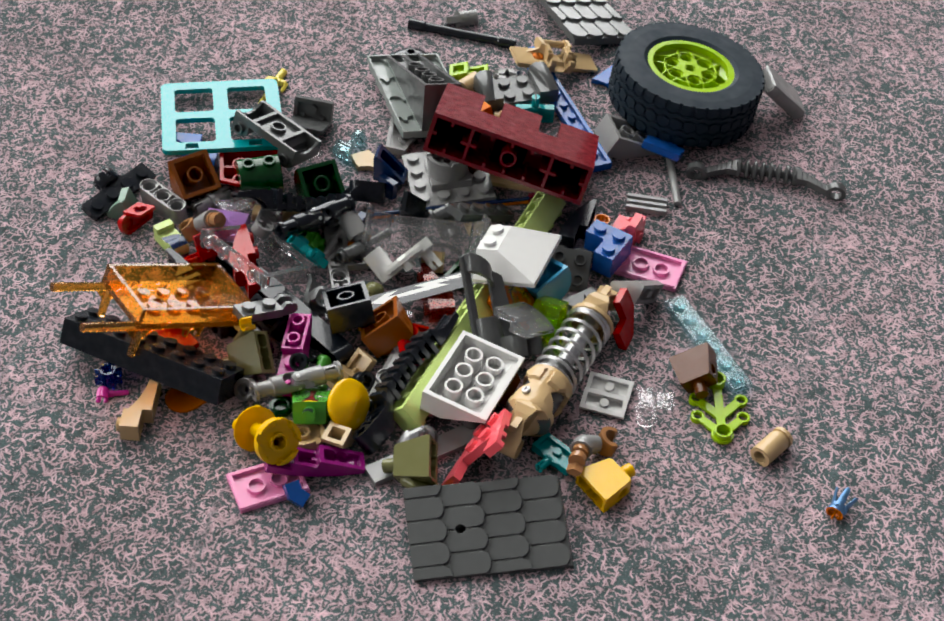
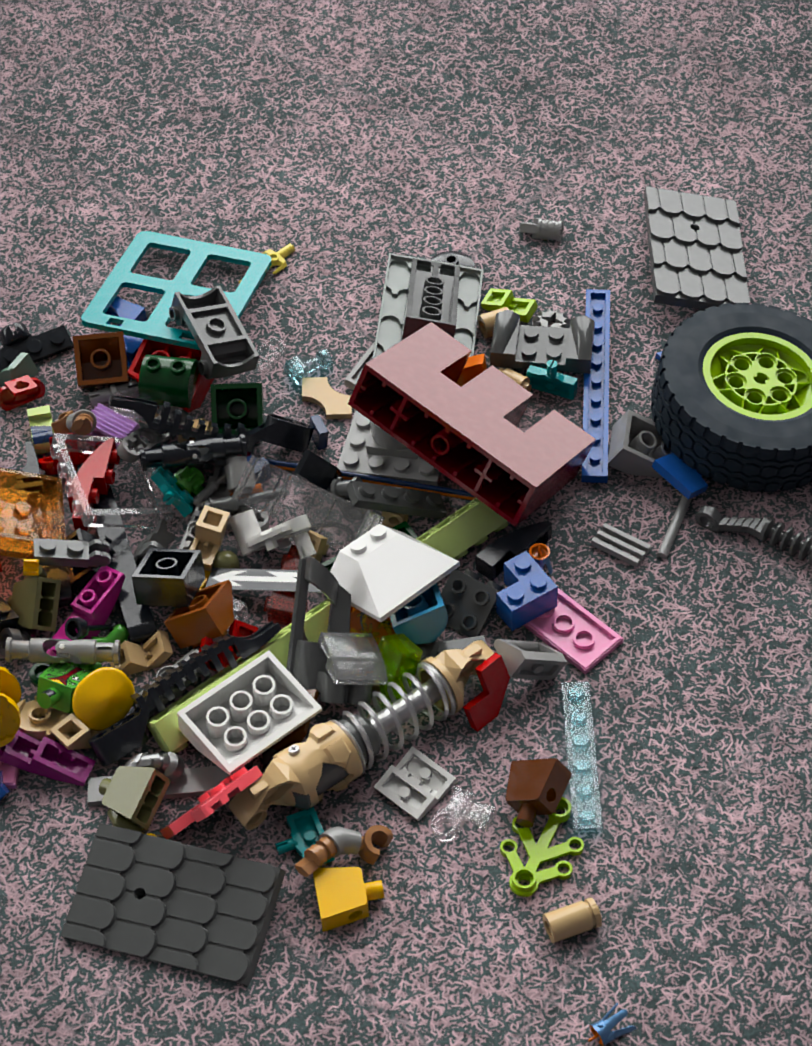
camera: 30 degrees right, 5 degrees up
(165, 201) = (60, 380): light grey beam -> none
(313, 114) = (283, 318): dark grey bracket -> none
(355, 267) = (210, 534): none -> tan slope
(369, 379) = (139, 668): black bush -> none
(387, 163) = (331, 405): dark blue slope -> none
(424, 26) = (571, 271): black piece -> none
(564, 62) = (614, 320): tan piece -> none
(632, 225) = (572, 573): coral brick -> none

